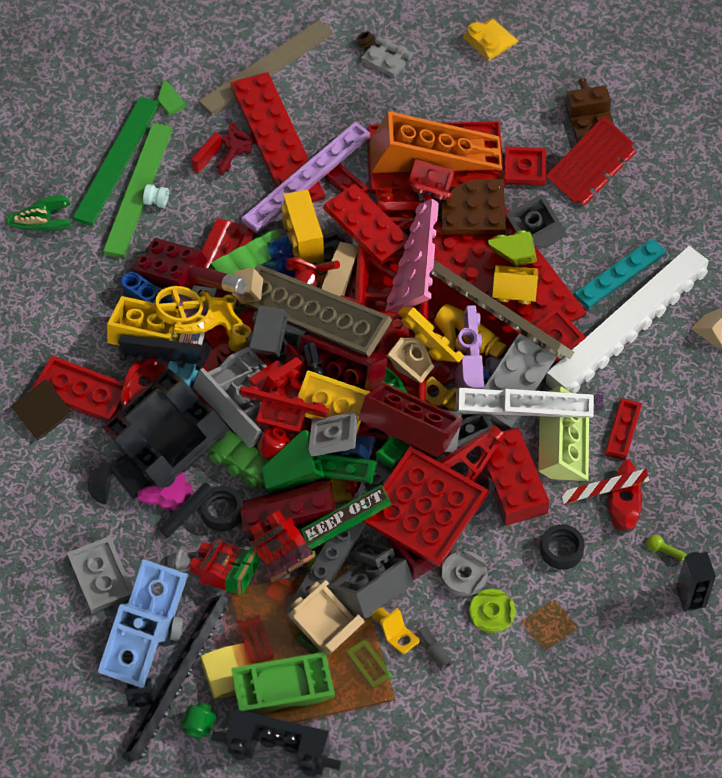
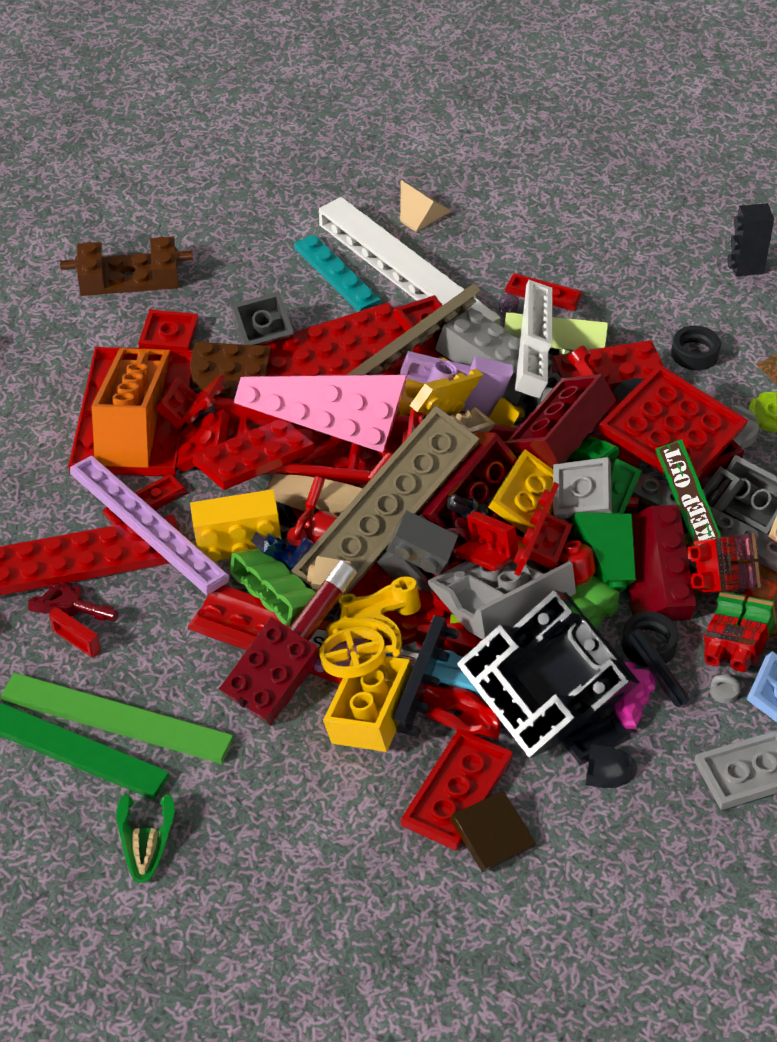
camera: 85 degrees left, 10 degrees down
(141, 289) = (307, 708): blue beam -> none
(155, 195) = (138, 690): light aqua wheel -> none
(515, 248) = (306, 334): lime slope -> none
(515, 284) = (351, 341): yellow slope -> none
(590, 160) = (186, 265): red hinge -> none
(605, 486) = (622, 304): sticker -> none
(625, 513) = (649, 298): red piece -> none
(656, 543) = (686, 283): lime bar -> none

